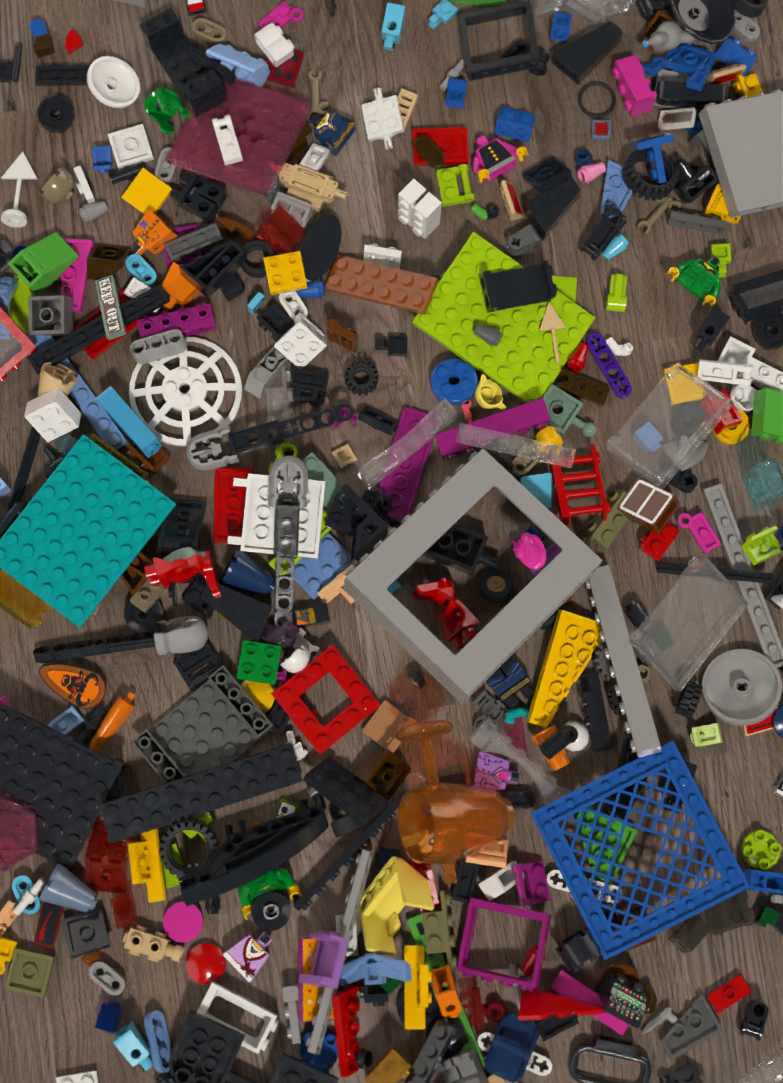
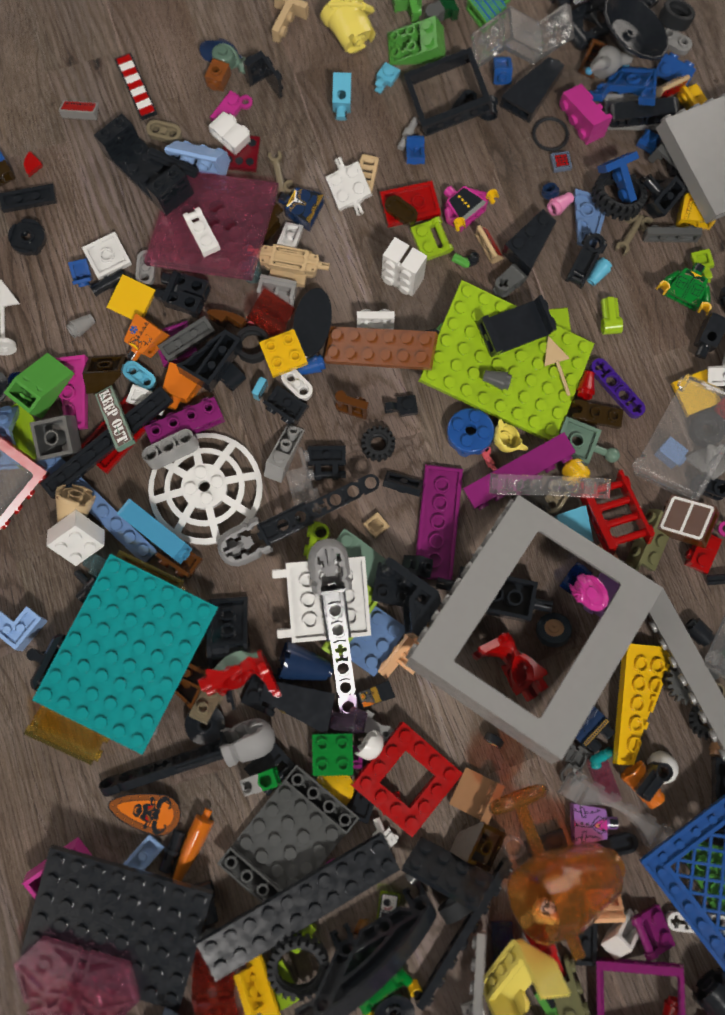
camera: 10 degrees left, 0 degrees up
(25, 467) = (57, 598): black axle -> none
(58, 187) = (41, 307): dark tan cylinder -> none
(83, 186) = (66, 302): white plate -> none
(117, 76) = (78, 195): white dish -> none
(169, 106) = (138, 211): green piece -> none
(186, 675) = (260, 782): none -> leg
(229, 502) = (271, 594): red tile -> none
(301, 342) = (312, 419): white bracket -> none
(344, 413) = (370, 483): magenta bracket -> none
(416, 438) = (438, 503): clear arch -> none
(514, 124) = (477, 170): blue bracket -> none
(546, 174) = (519, 213): black tile -> none
(595, 711) = (678, 739): black bracket -> none
(620, 350) = (623, 371): white arm -> none
(677, 119) = (632, 138): tile -> none

